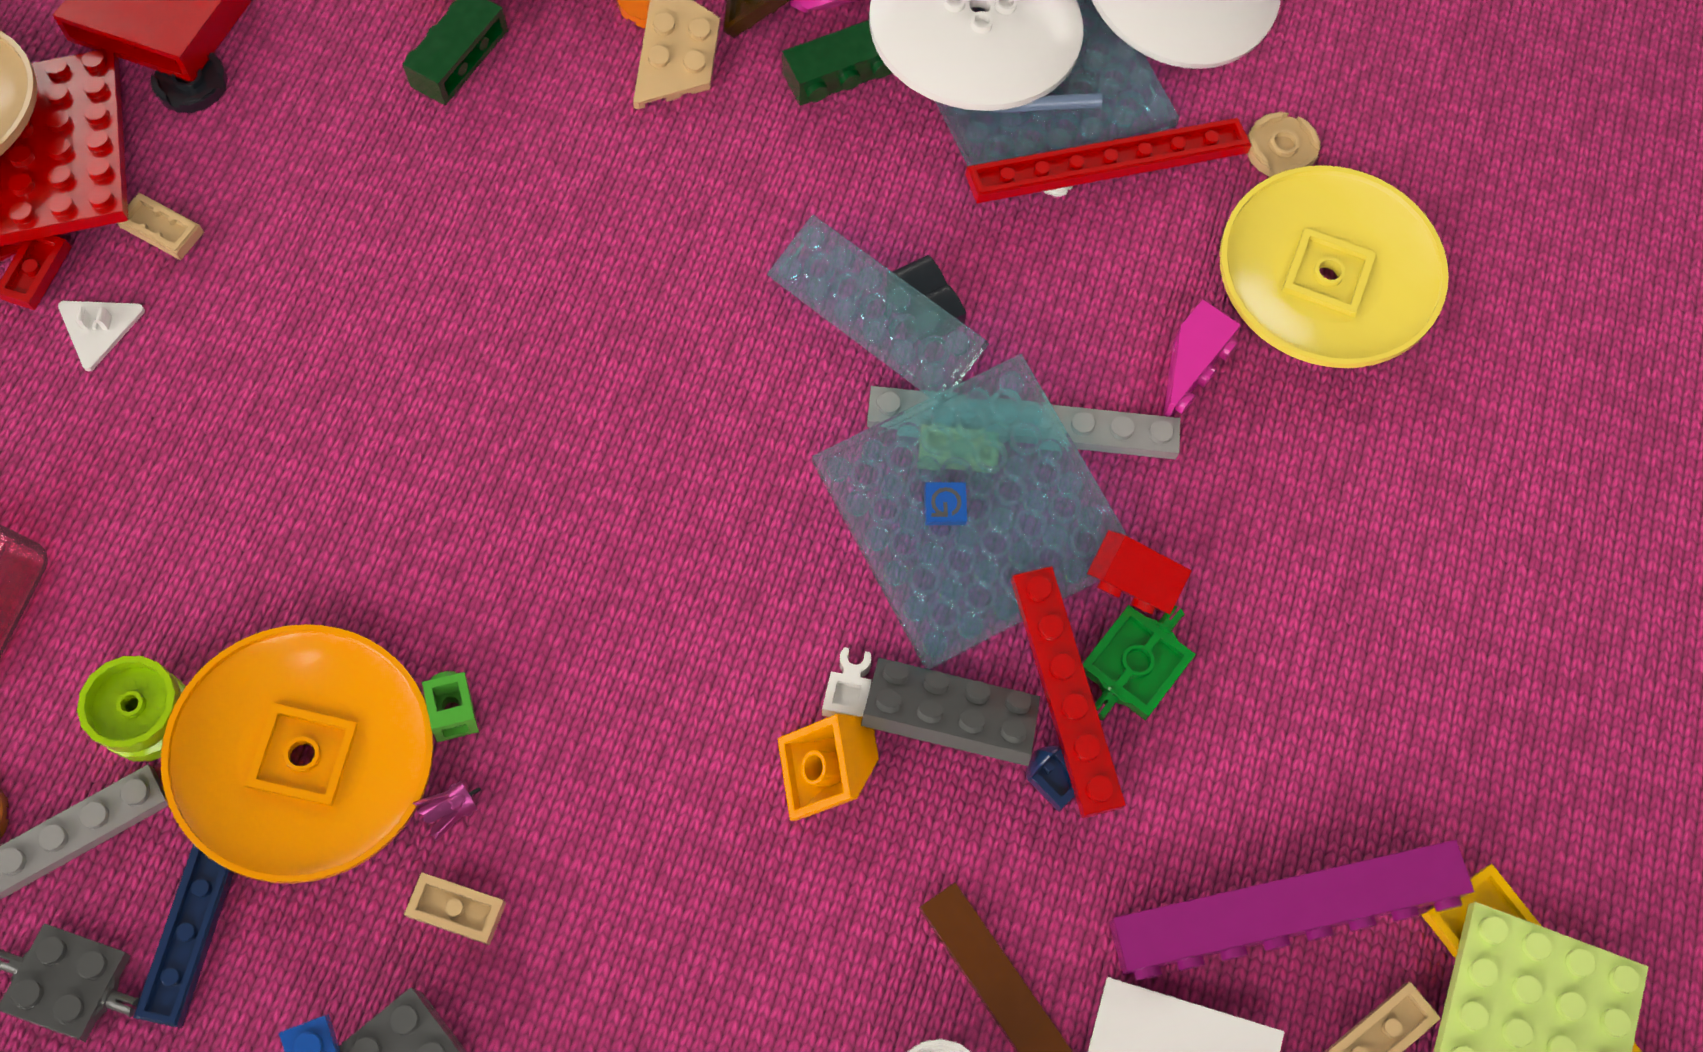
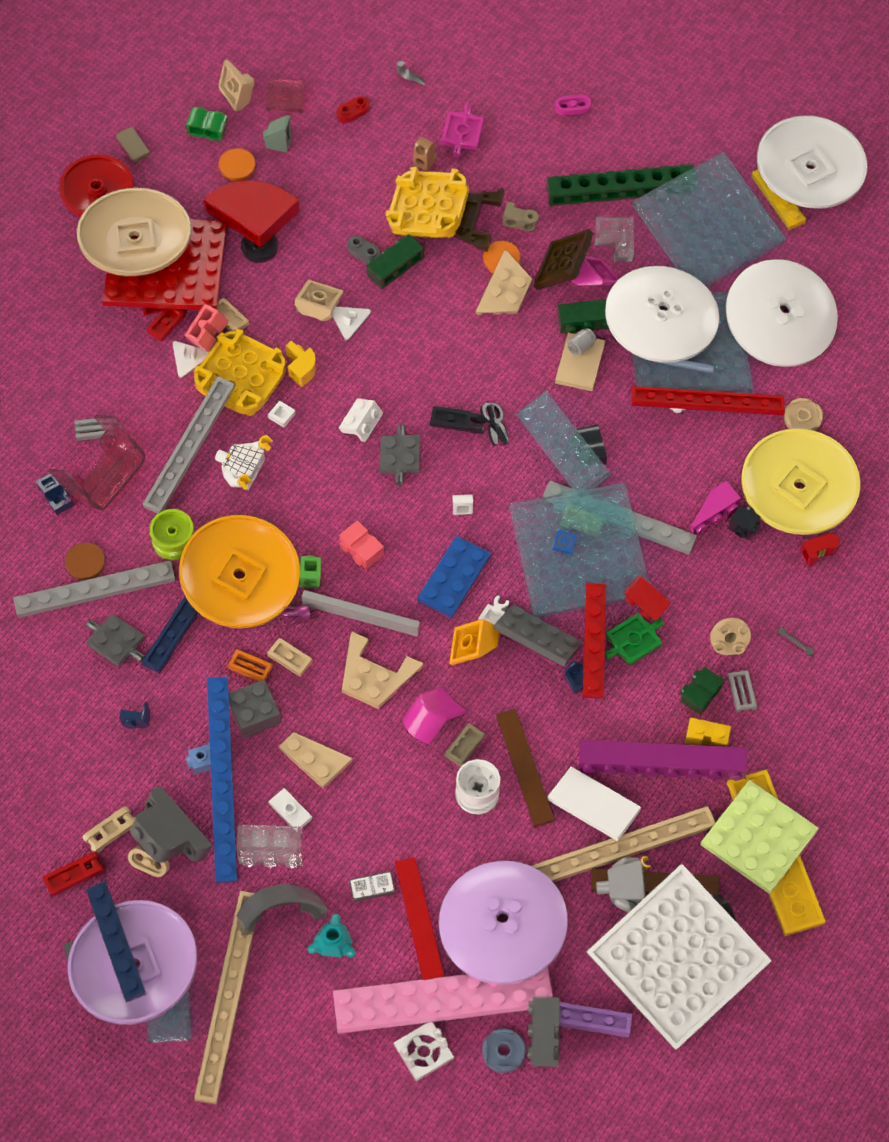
camera: 20 degrees right, 5 degrees down
(113, 258) = (205, 327): none -> coral brick
(130, 510) = (189, 445): none -> light grey plate
(205, 331) = (248, 365): none -> yellow plate
(254, 512) = (243, 462): none -> white torso
(310, 391) = (281, 414): none -> white plate
(326, 154) = (318, 300): none -> tan slope
(329, 284) = (303, 365): none -> yellow brick
(386, 39) = (363, 249): none -> dark grey plate
(397, 175) = (349, 319): none -> white piece
(413, 957) = (265, 673): none -> orange tile
(472, 360) = (361, 419): none -> white bracket
(540, 619) = (361, 545): none -> coral brick
(567, 411) = (400, 454): none -> dark grey plate
(577, 765) = (361, 613): none -> light grey tile
(637, 909) = (370, 681): none -> tan wing
(657, 314) = (456, 420): none -> black hinge
(719, 478) = (462, 504): none -> white brick
(734, 306) = (495, 423): none -> black piece
(744, 633) = (454, 577): none -> blue plate
(788, 948) = (430, 714): none -> dark pink piece
(847, 108) = (581, 341): none -> light grey brick
(853, 147) = (580, 370): none -> tan tile
(877, 997) = (464, 745): none -> dark tan plate
(1260, 369) = (745, 522): none -> black brick
(1304, 731) = (701, 690): none -> dark green brick
(1320, 603) = (730, 636): none -> tan plate
(1341, 824) = (707, 733): none -> yellow brick
(1363, 714) = (745, 706): none -> light grey tile
(1419, 373) = (819, 547): none -> red leg
(1465, 588) = (809, 651): none -> dark grey hinge

